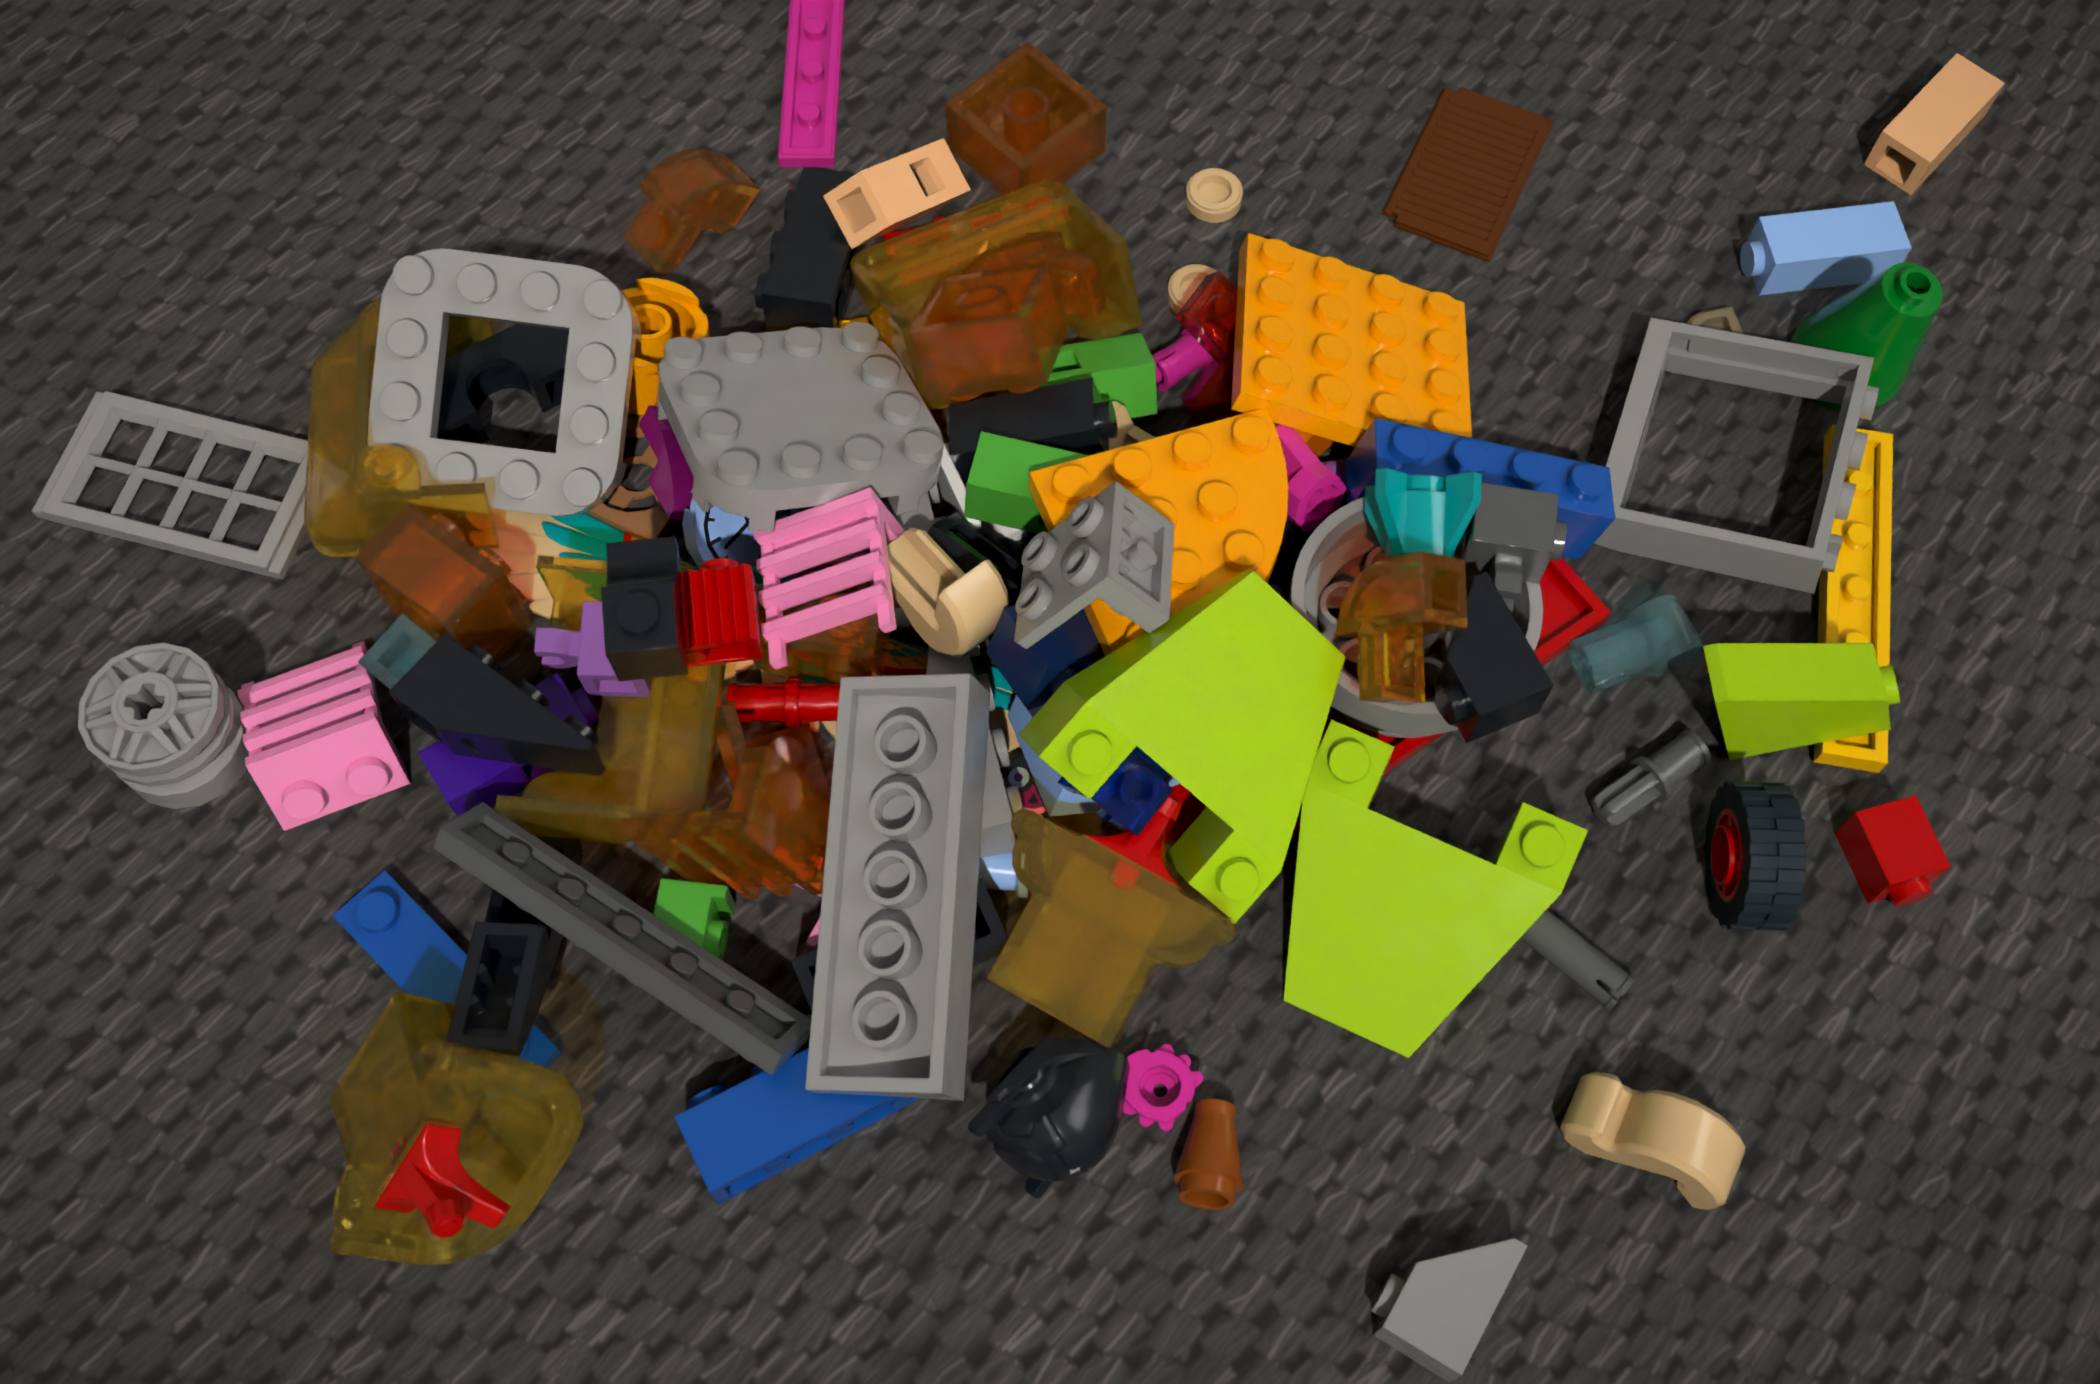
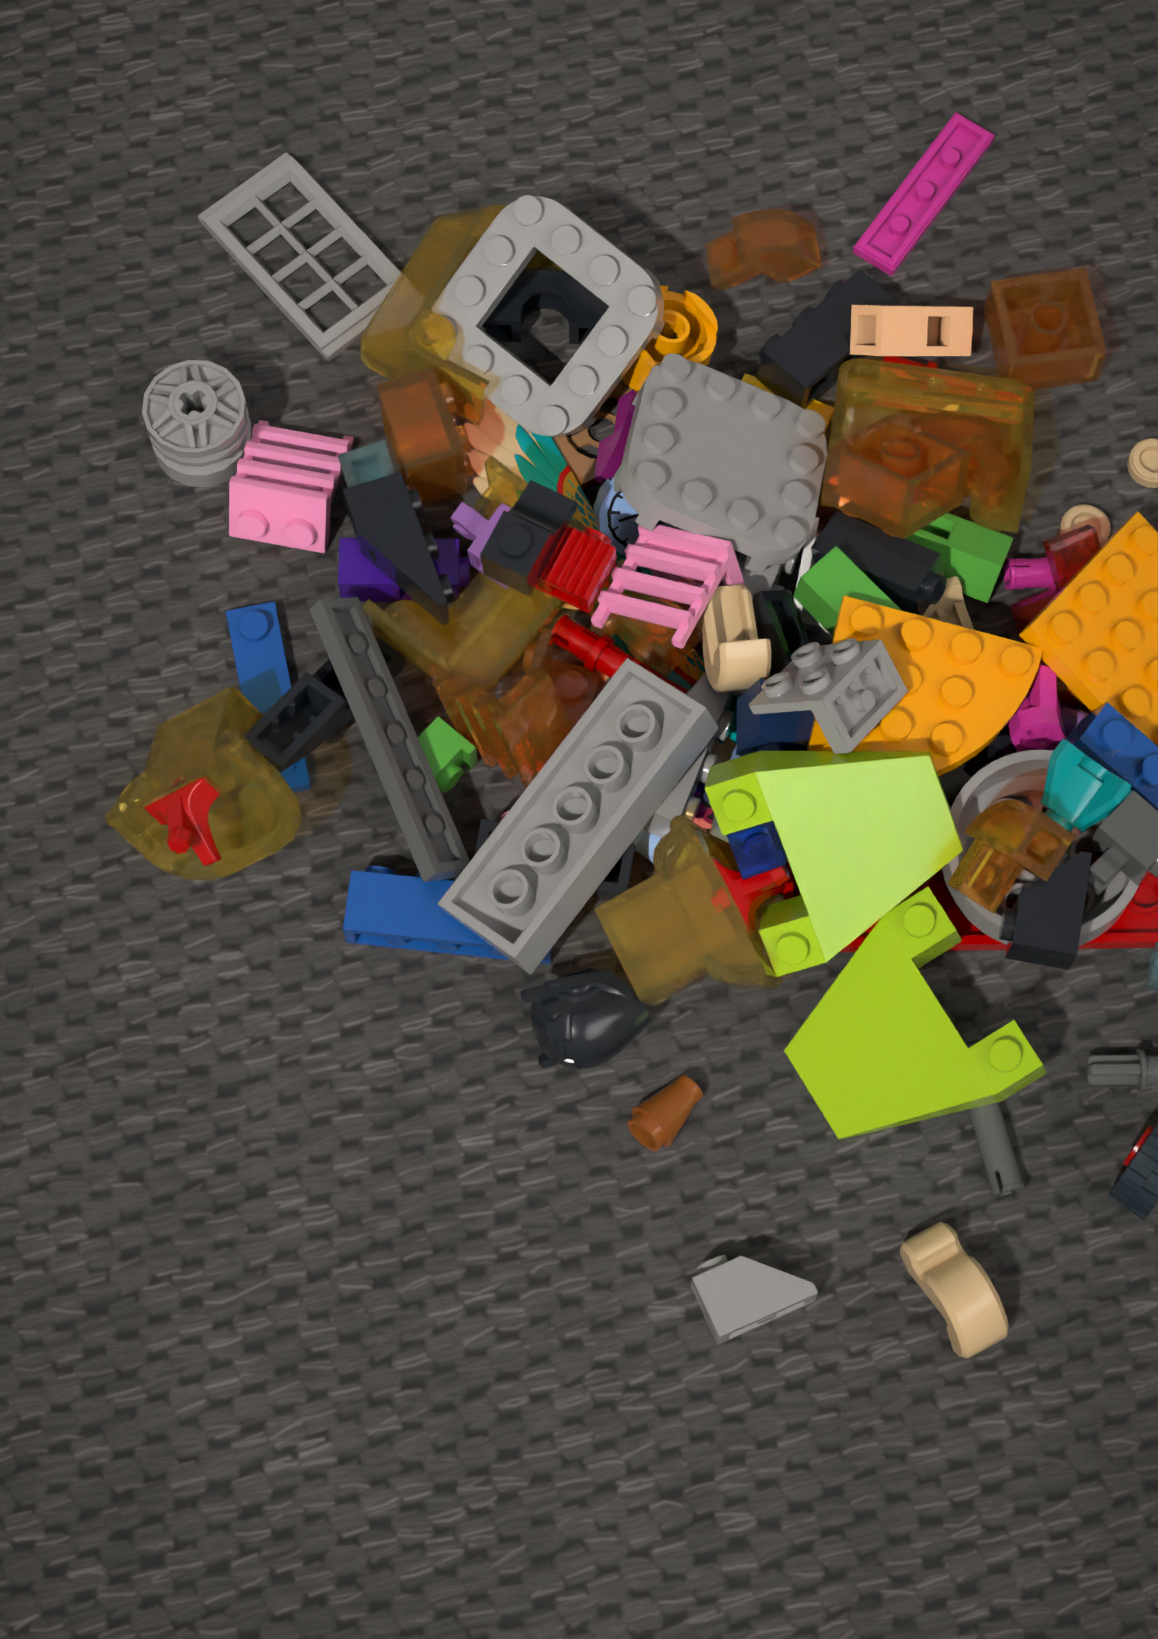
camera: 35 degrees right, 5 degrees up
(1156, 1069) = (661, 1036): dark pink animal -> none

